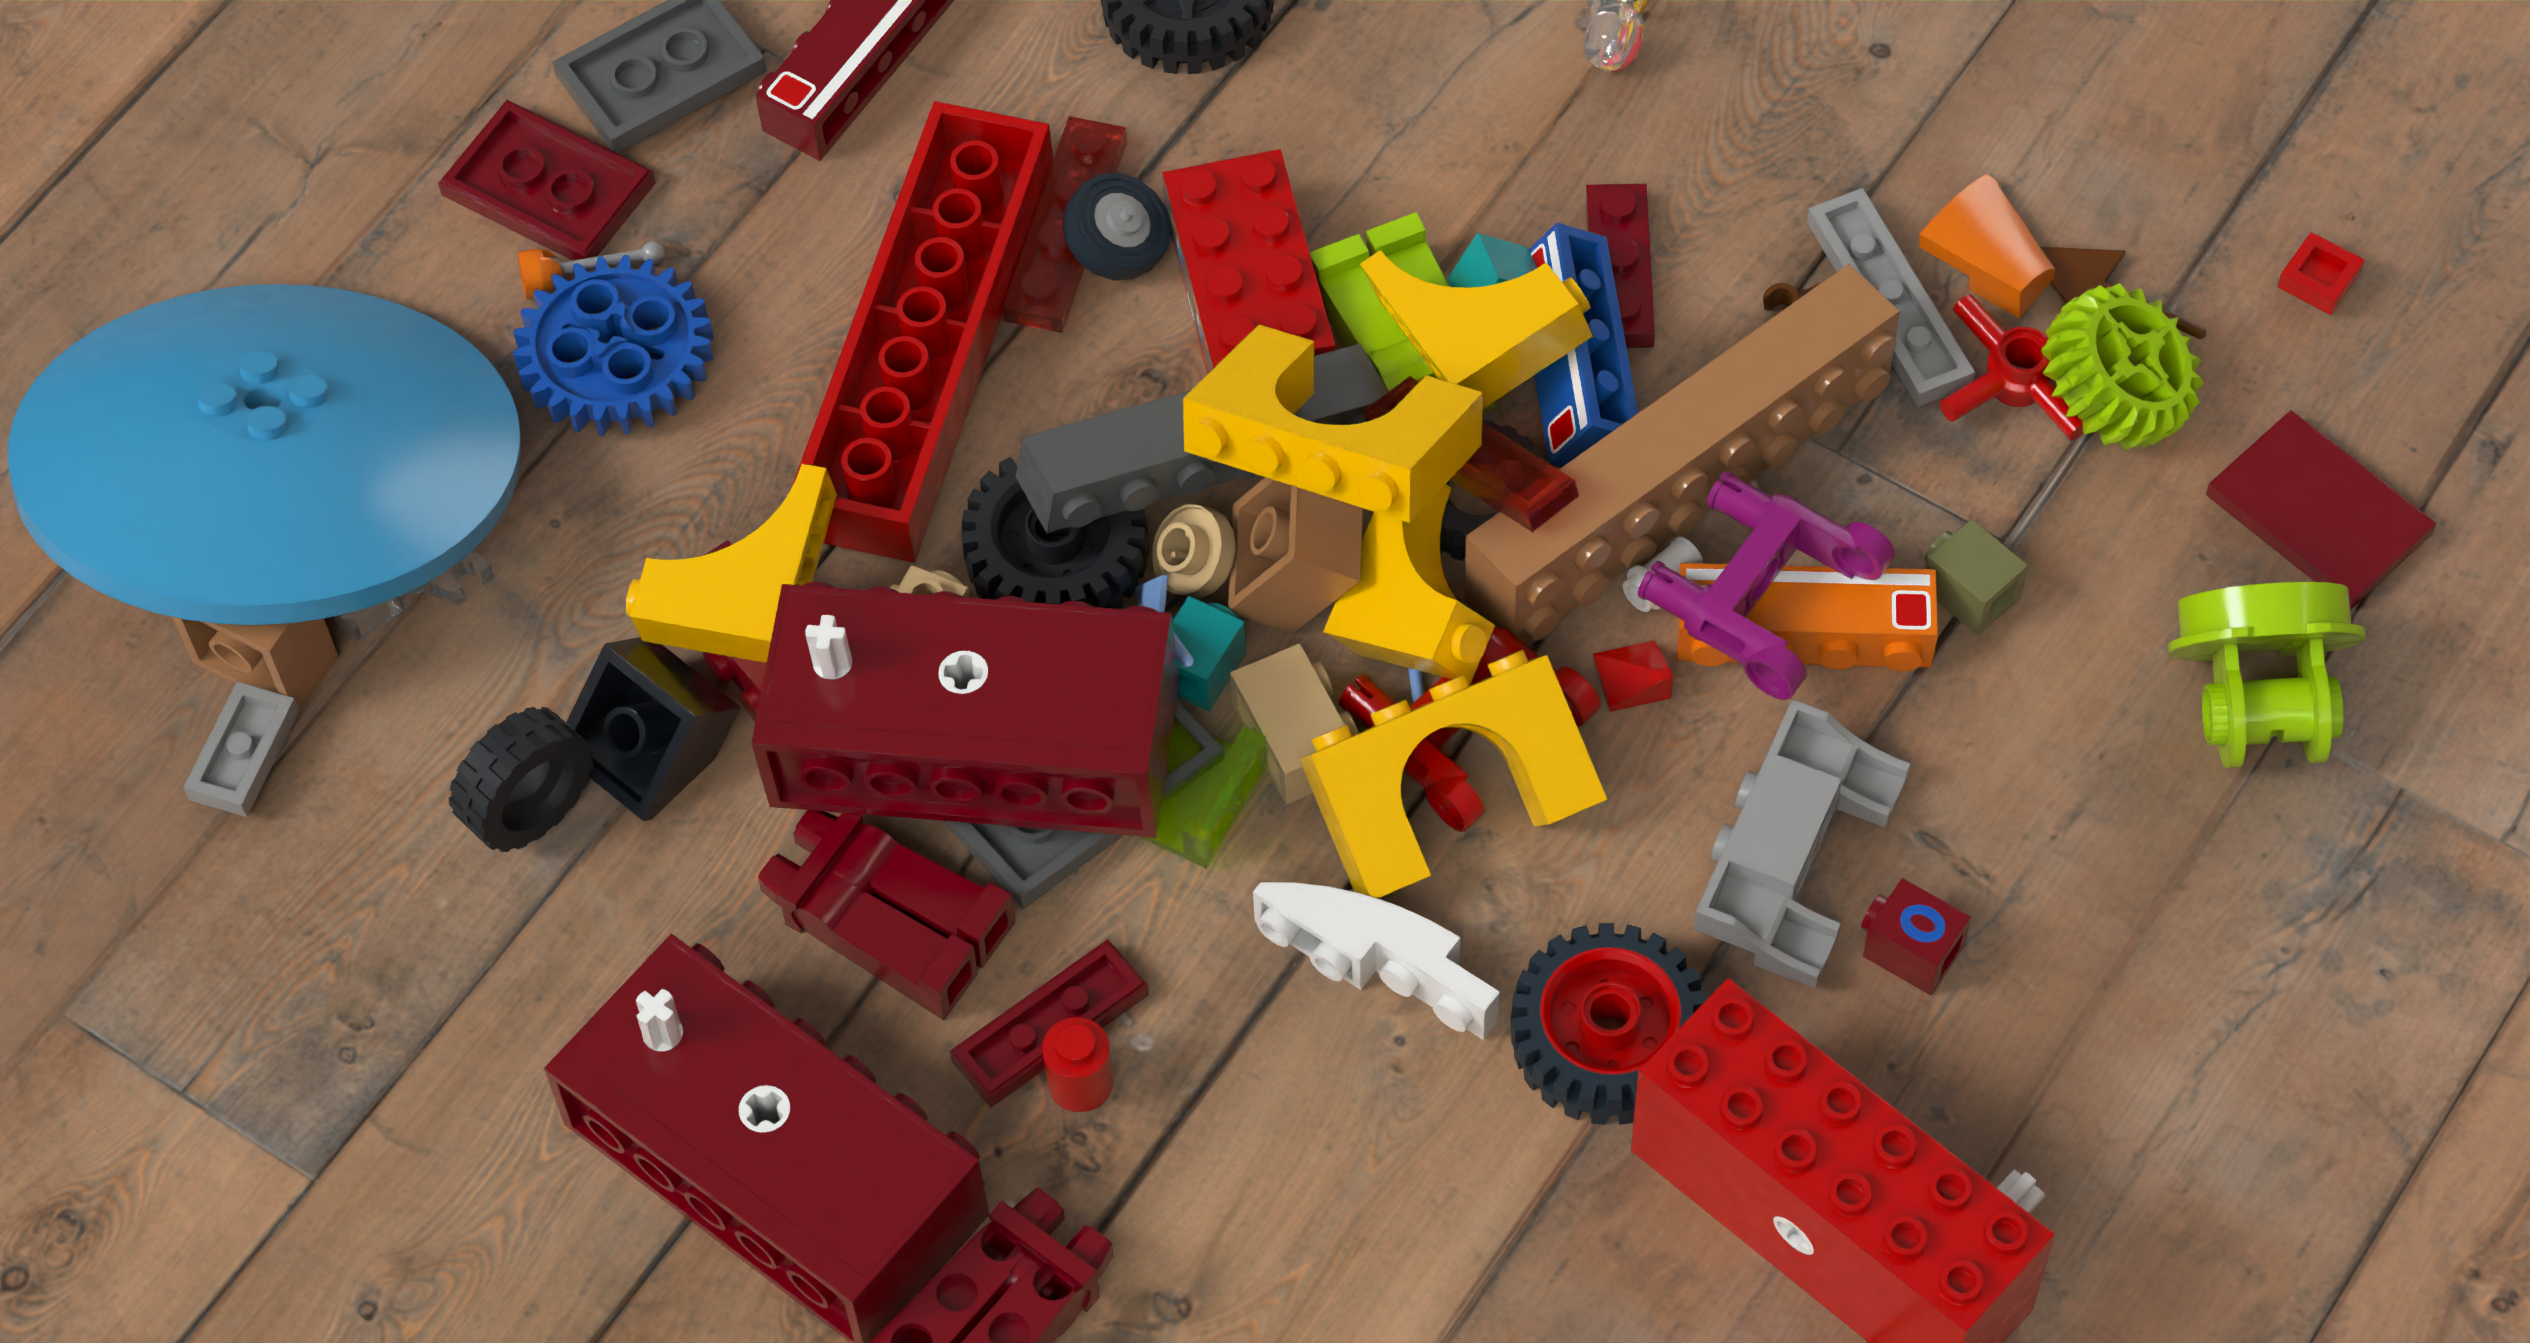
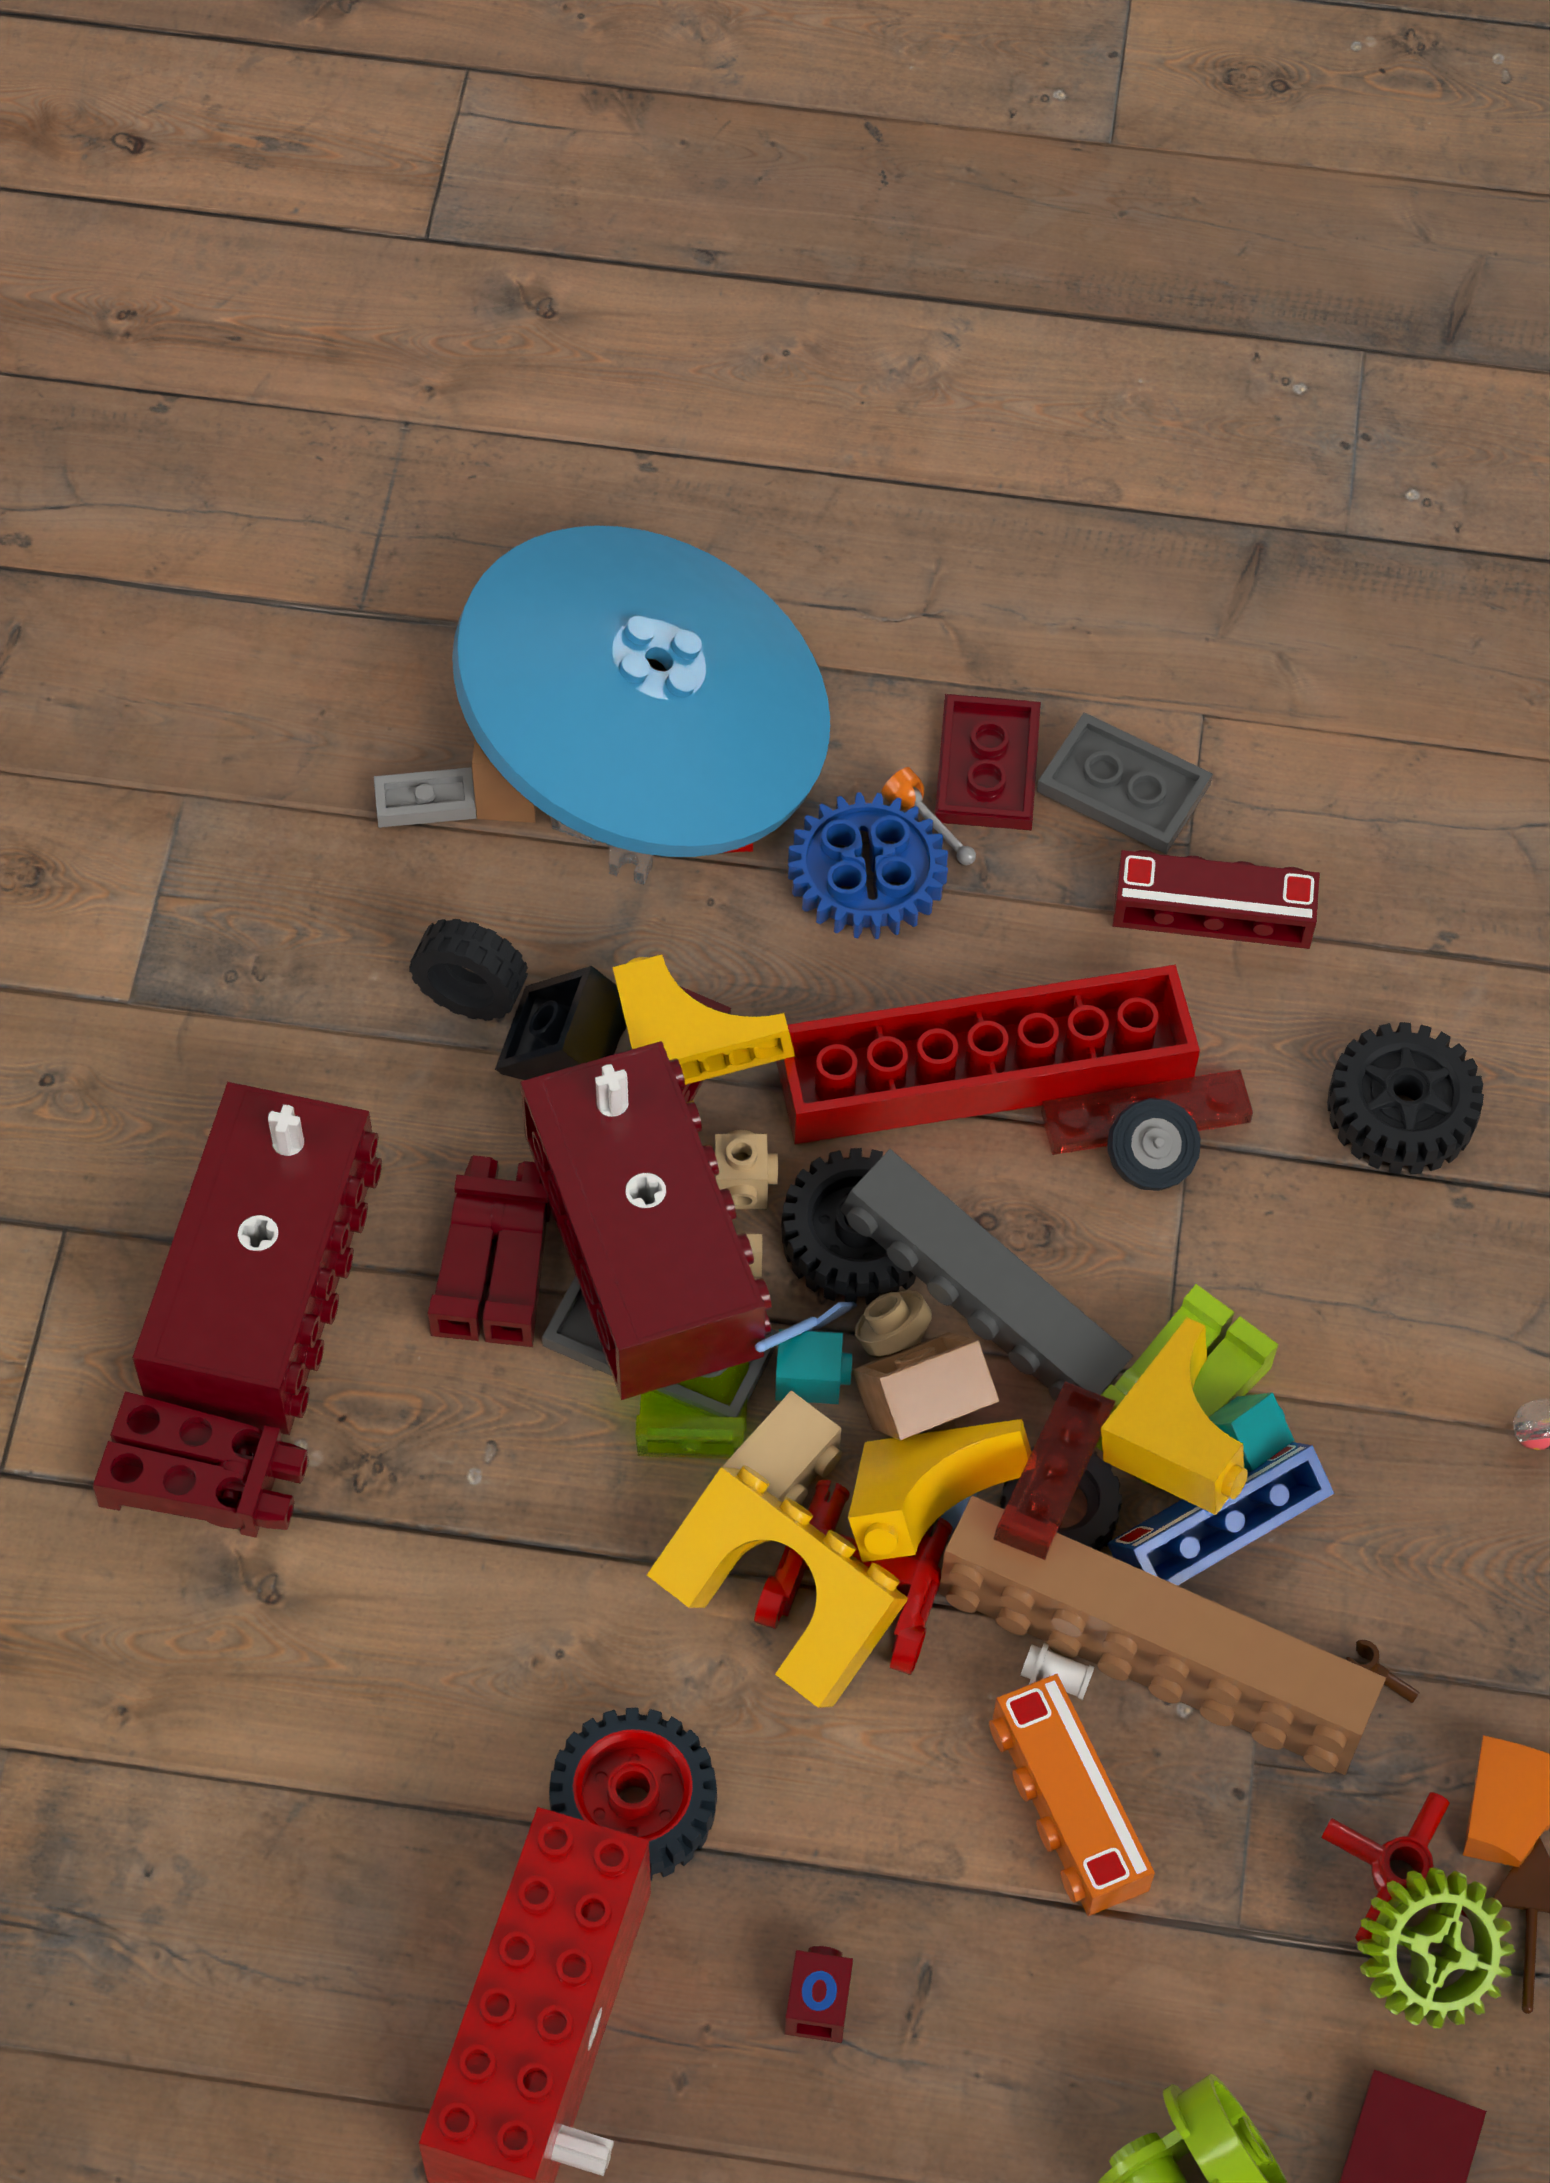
camera: 60 degrees right, 0 degrees up
(1010, 1046) = (457, 1405): dark red tile -> none
(1078, 1064) = (421, 1434): red brick -> none
(1243, 253) = (1154, 1250): red brick -> none
(1358, 934) = (620, 1595): white slope -> none
(1385, 465) = (976, 1398): yellow arch -> none
(1622, 217) = (1338, 1523): dark red plate -> none
(1633, 675) = (958, 1689): red slope -> none
(1779, 529) = (1110, 1731): magenta connector -> none
(1782, 823) = (856, 1853): light grey bracket -> none
(1925, 349) = (1416, 1740): light grey plate -> none
(1975, 575) = (1178, 1910): olive brick -> none

